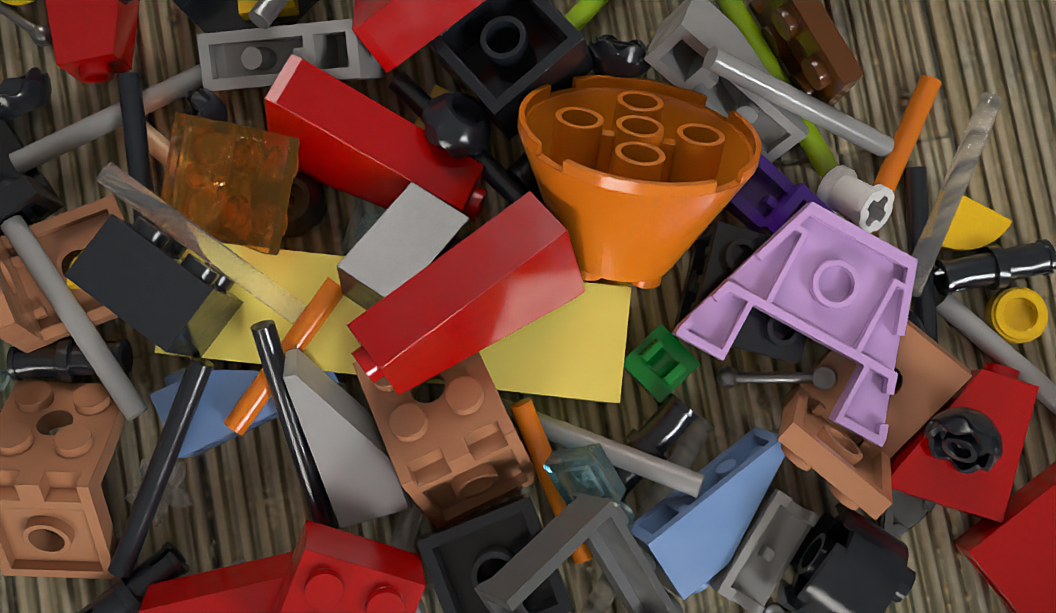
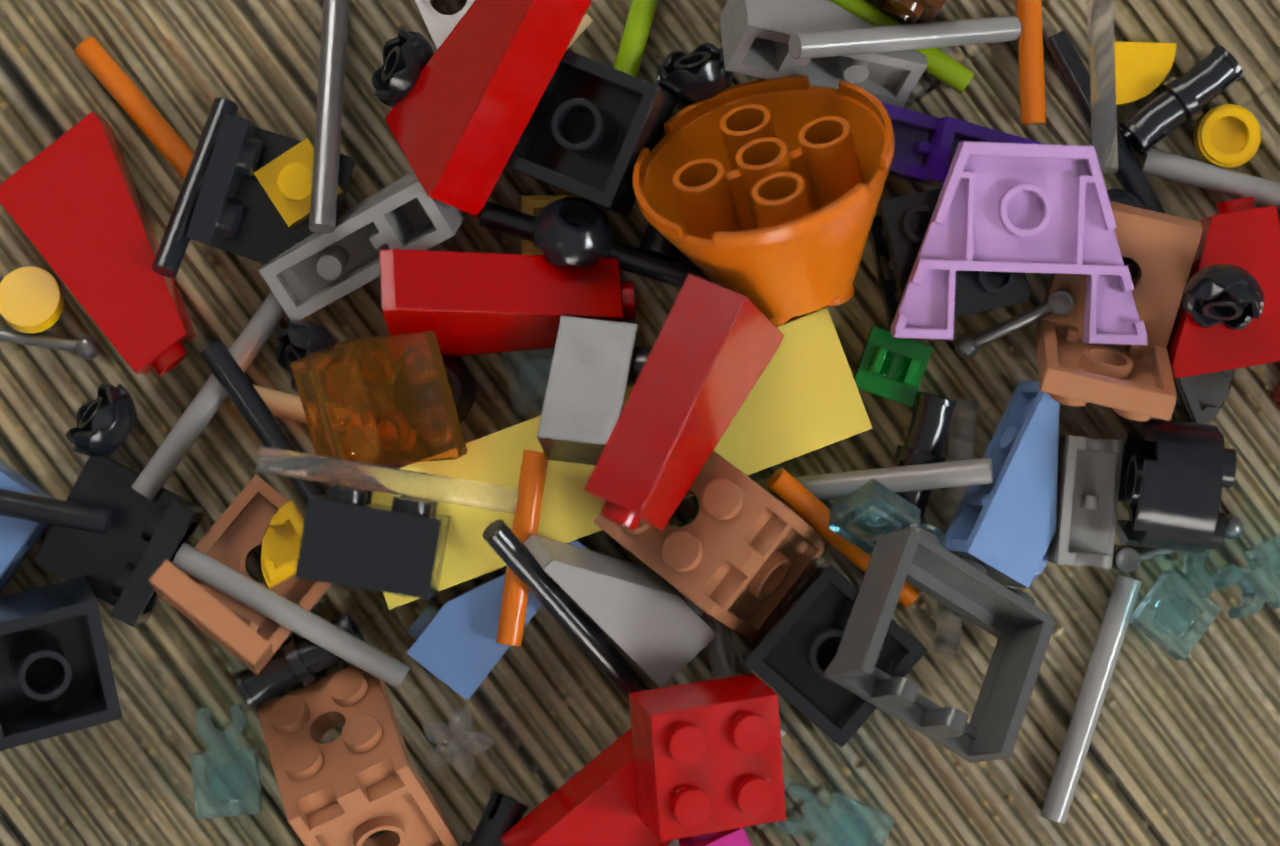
camera: 30 degrees left, 5 degrees up
(160, 466) = (456, 716): black bar -> none
(856, 200) = (1007, 103): white bush -> none

